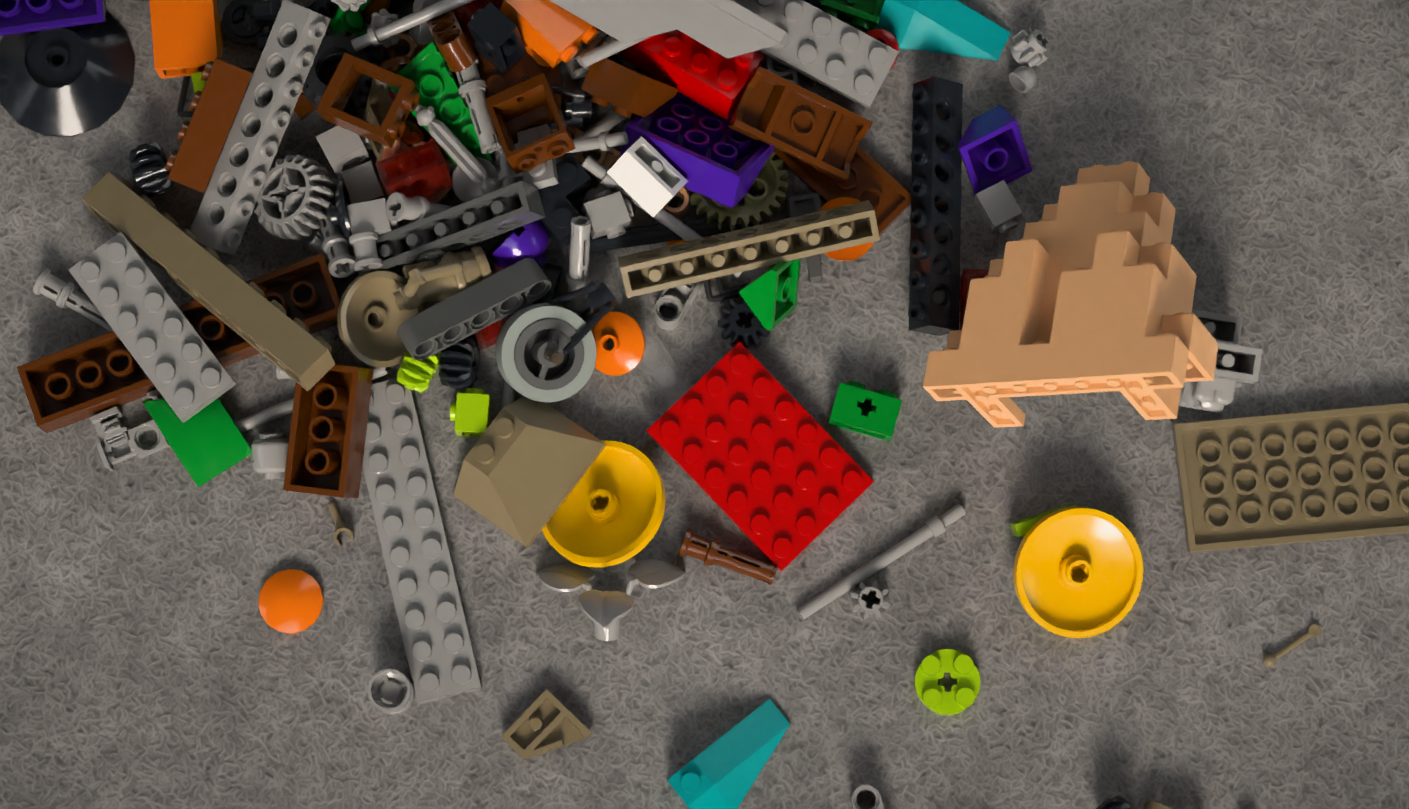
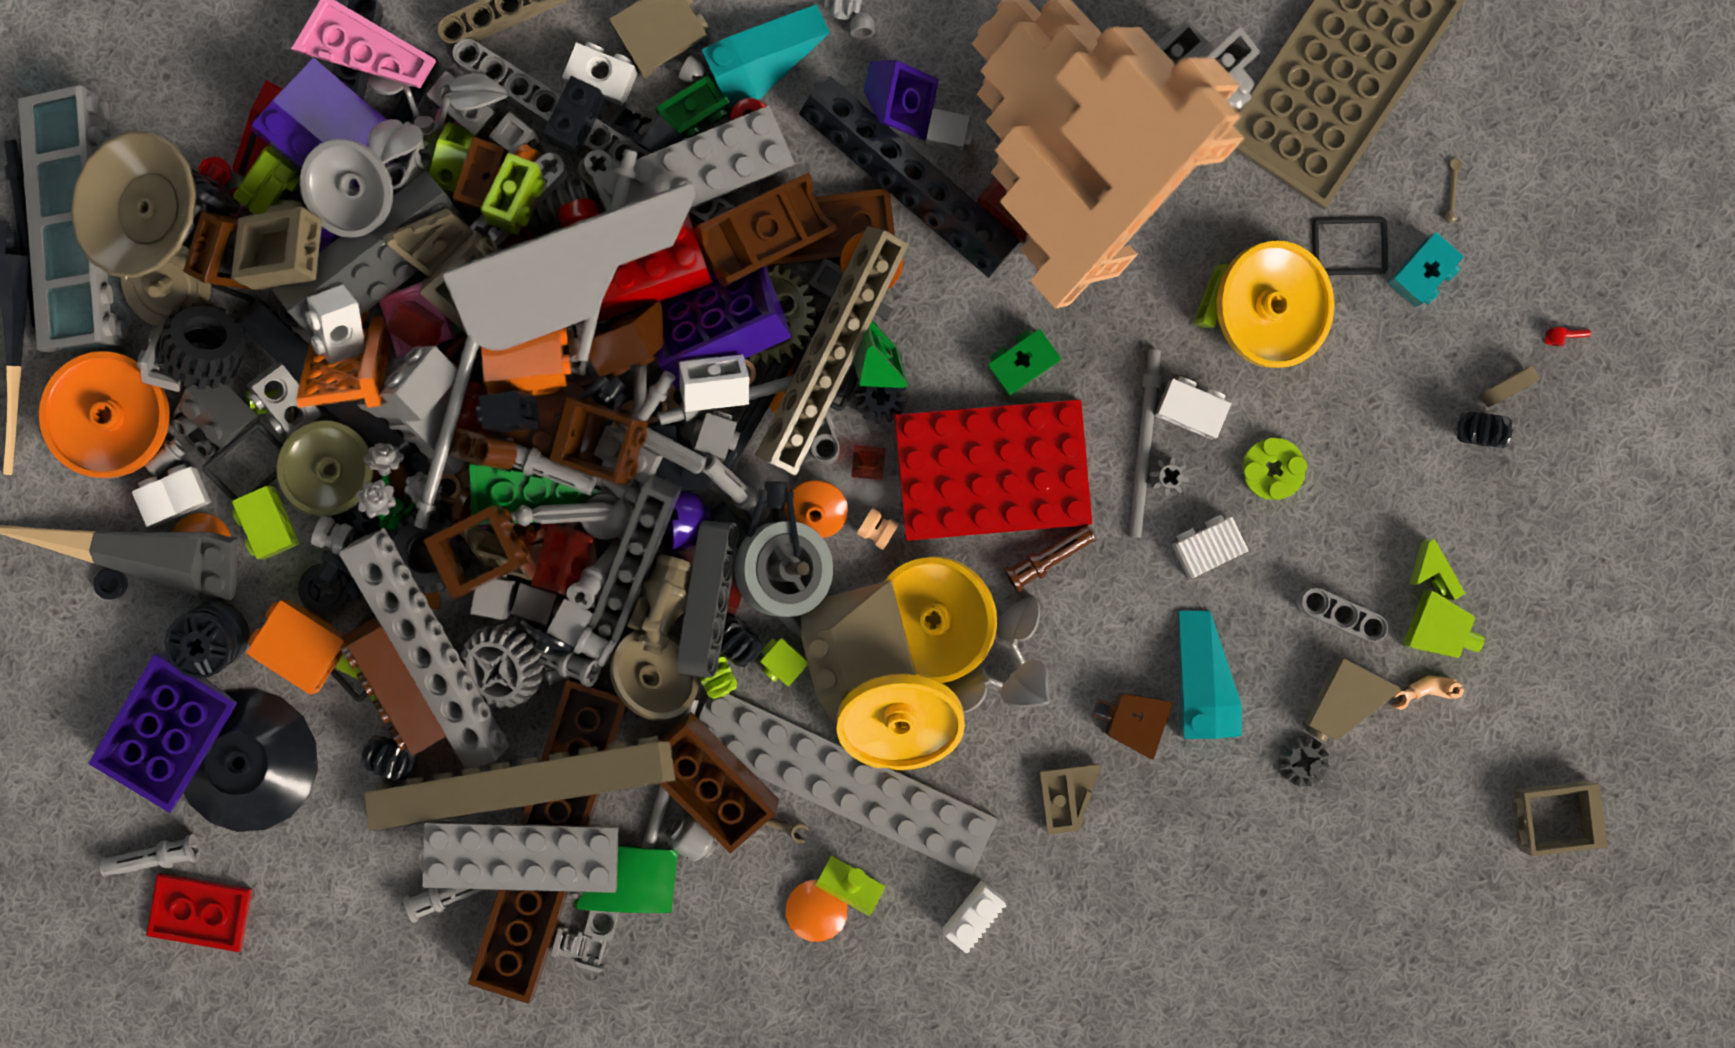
camera: 55 degrees left, 10 degrees up
(332, 611) = (850, 885): none -> lime tile
(385, 730) = (974, 916): none -> white brick
(391, 691) = (949, 890): light grey wheel -> none
(496, 538) = (900, 722): none -> yellow dish
(568, 187) = (670, 450): none -> light grey axle
(638, 403) = (884, 532): none -> light nougat wheel
(650, 733) = (1135, 721): none -> reddish brown torso
(685, 354) = (868, 462): none -> clear red tile
(840, 678) = (1209, 547): none -> white brick
(940, 574) = (1193, 408): none -> white brick
(1173, 556) = (1352, 220): none -> black piece
(1226, 665) = (1410, 278): none -> teal brick

